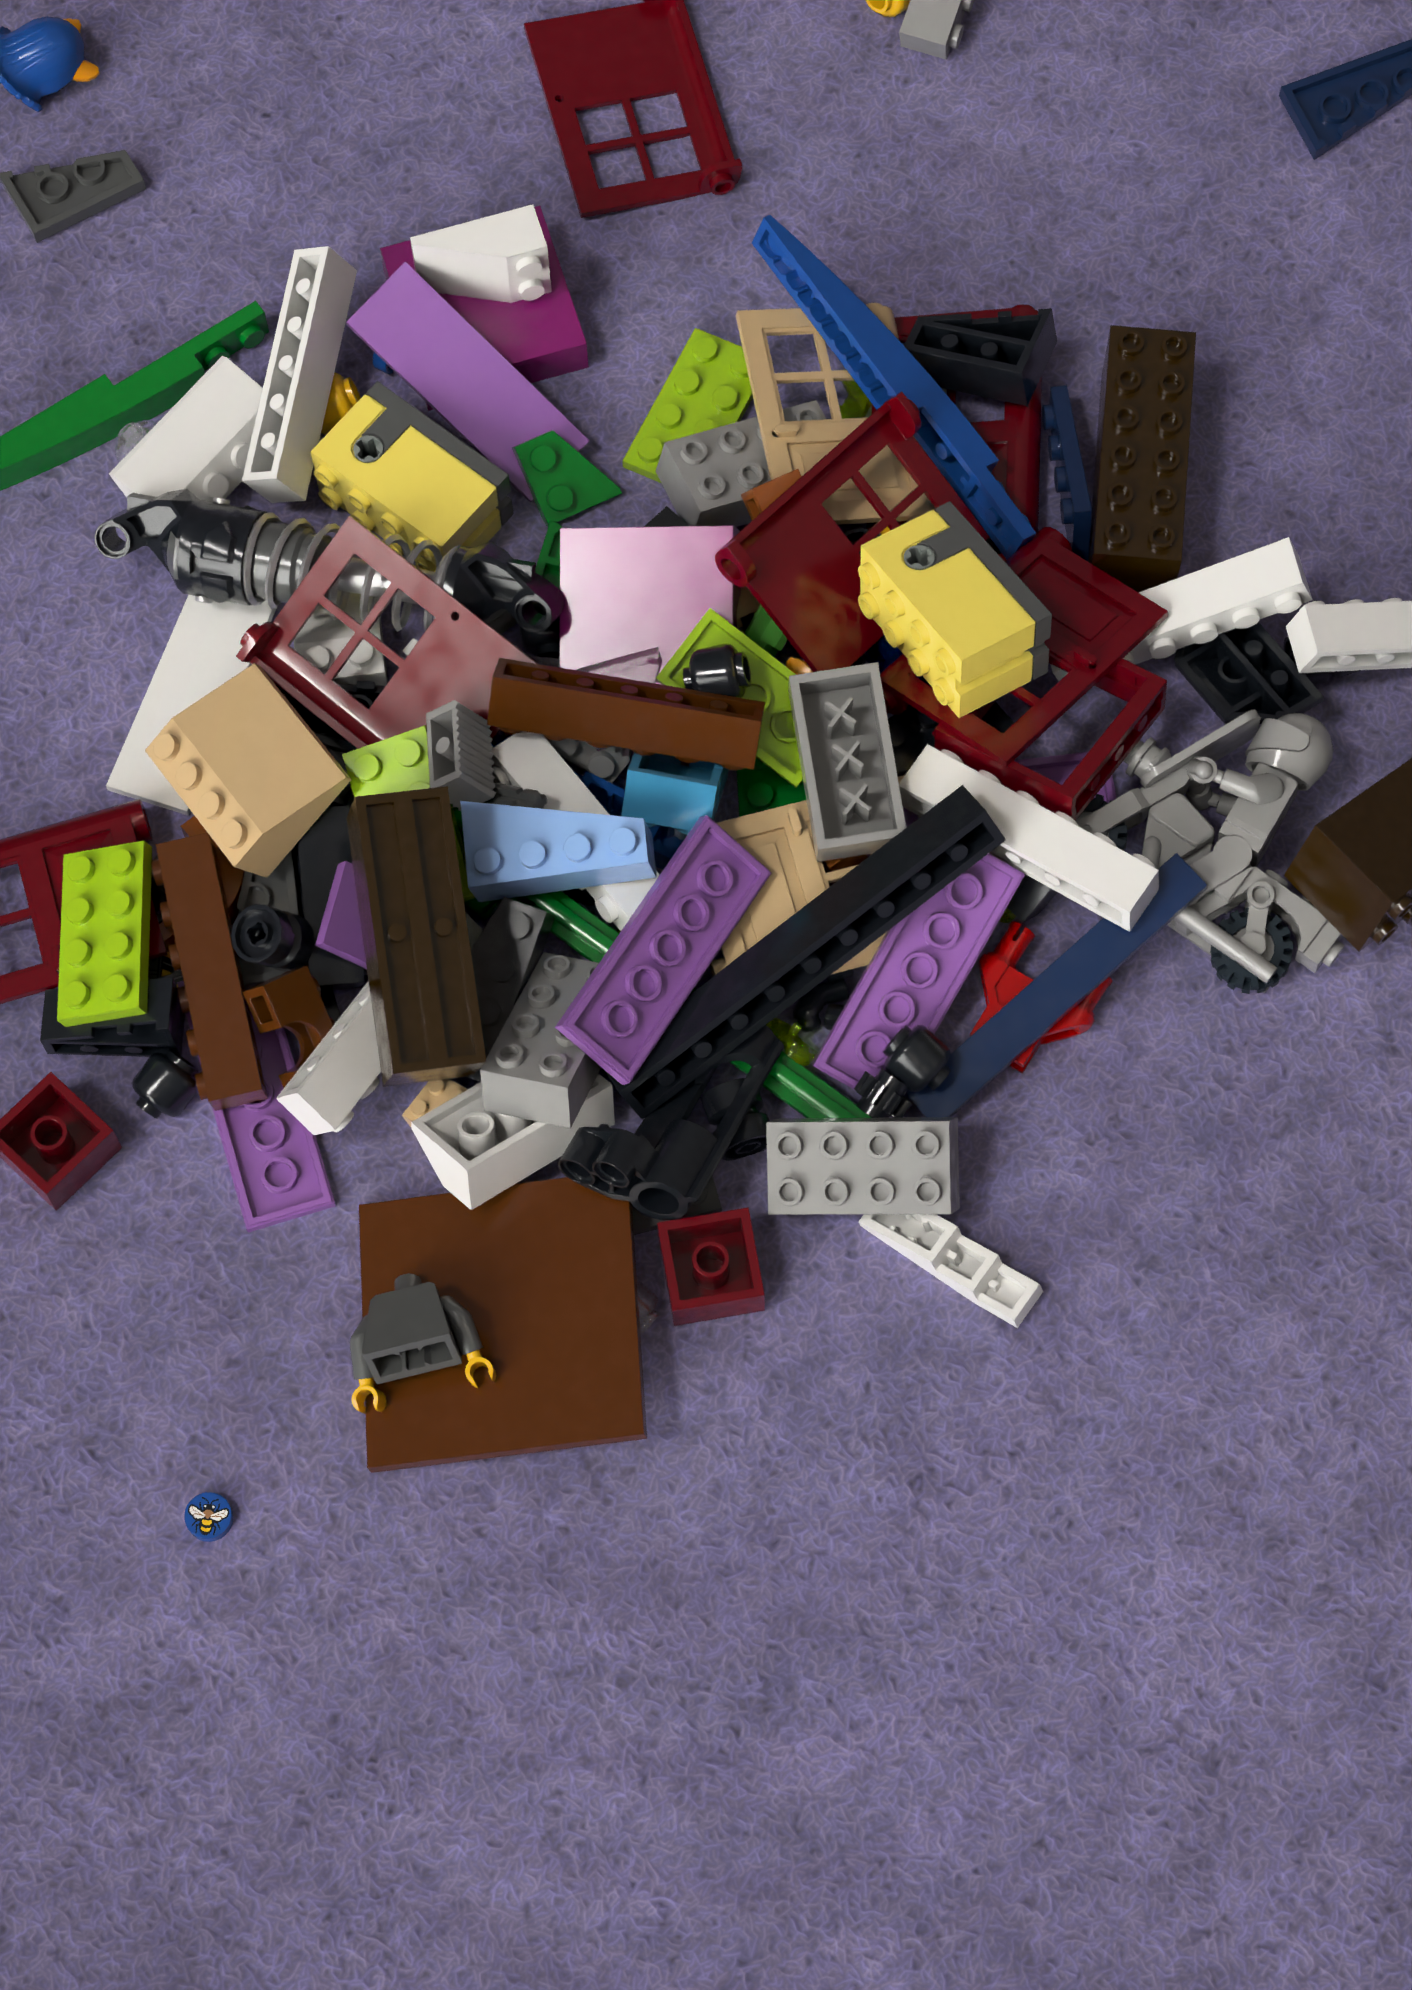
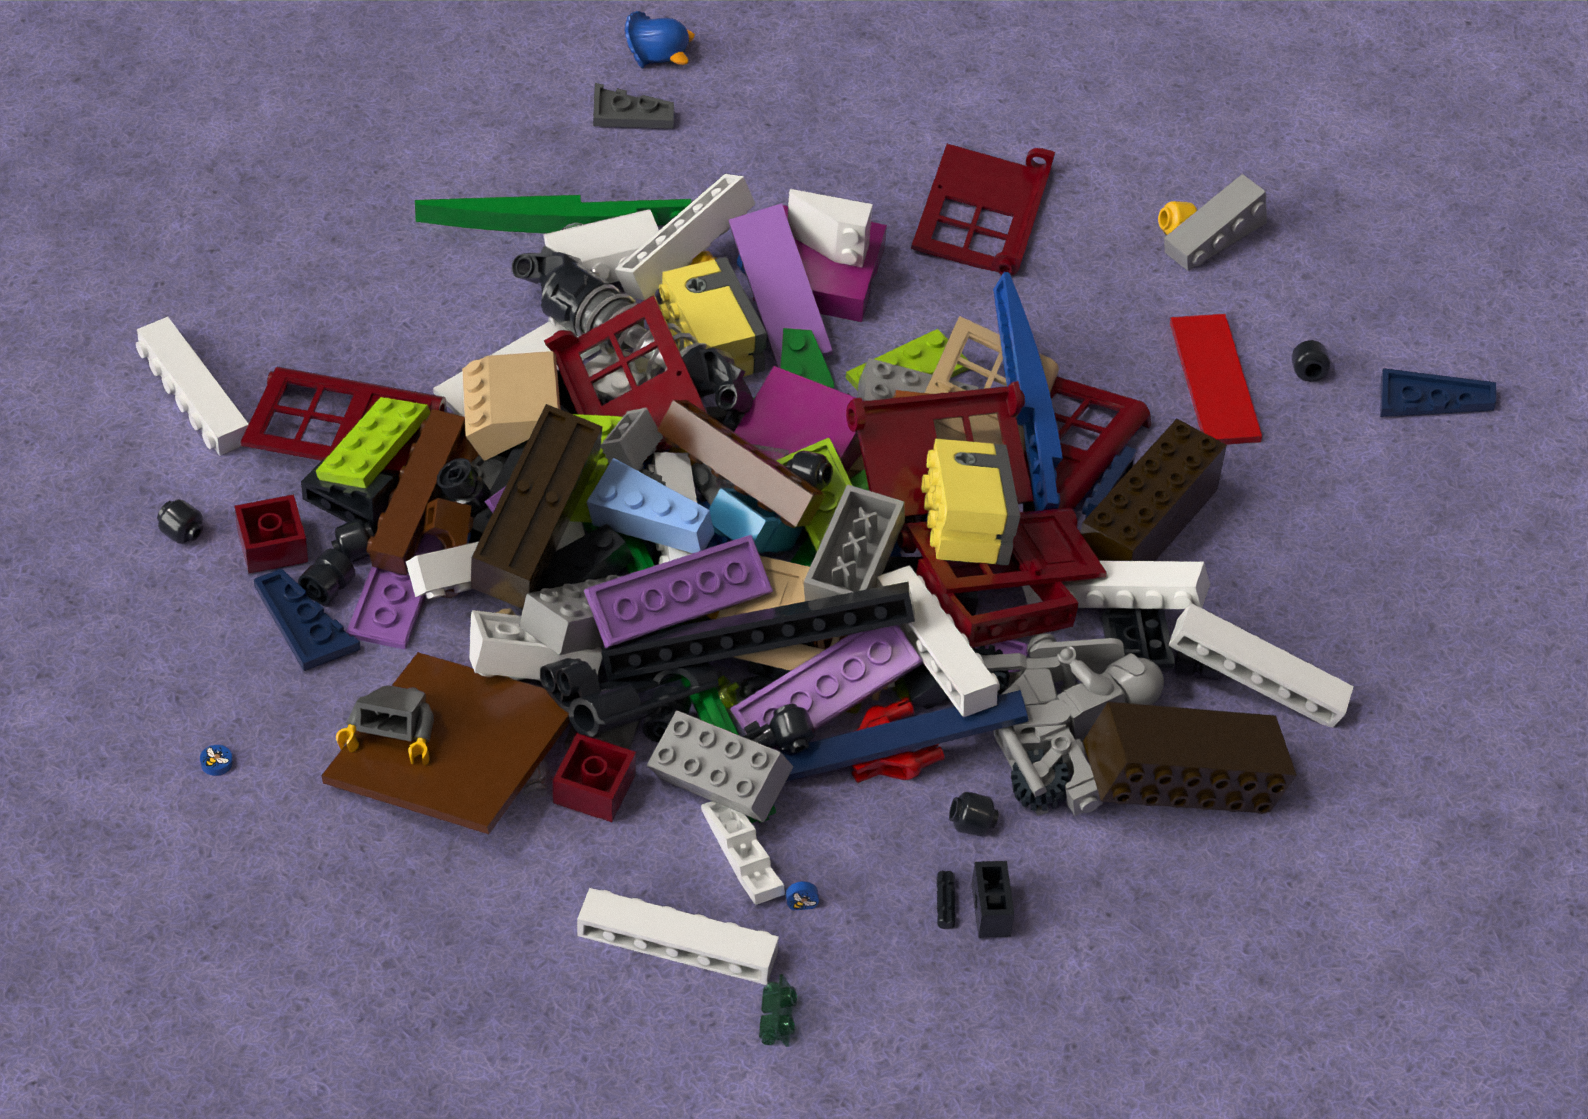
camera: 25 degrees right, 20 degrees down
(169, 1157) = (327, 575): none -> black wheel
(190, 1250) = (302, 622): none -> dark blue wing
(956, 1430) = (677, 936): none -> white brick
(985, 356) = (1094, 408): black wedge -> none
(1066, 1282) = (802, 896): none -> blue tile
(1084, 214) = (1215, 378): none -> red tile
(1152, 1479) = (779, 1000): none -> clear green hinge
(1187, 123) = (1310, 361): none -> black head
(1195, 1042) = (973, 813): none -> black head
(1235, 1182) = (946, 900): none -> black axle
(1299, 1155) = (992, 899): none -> black brick

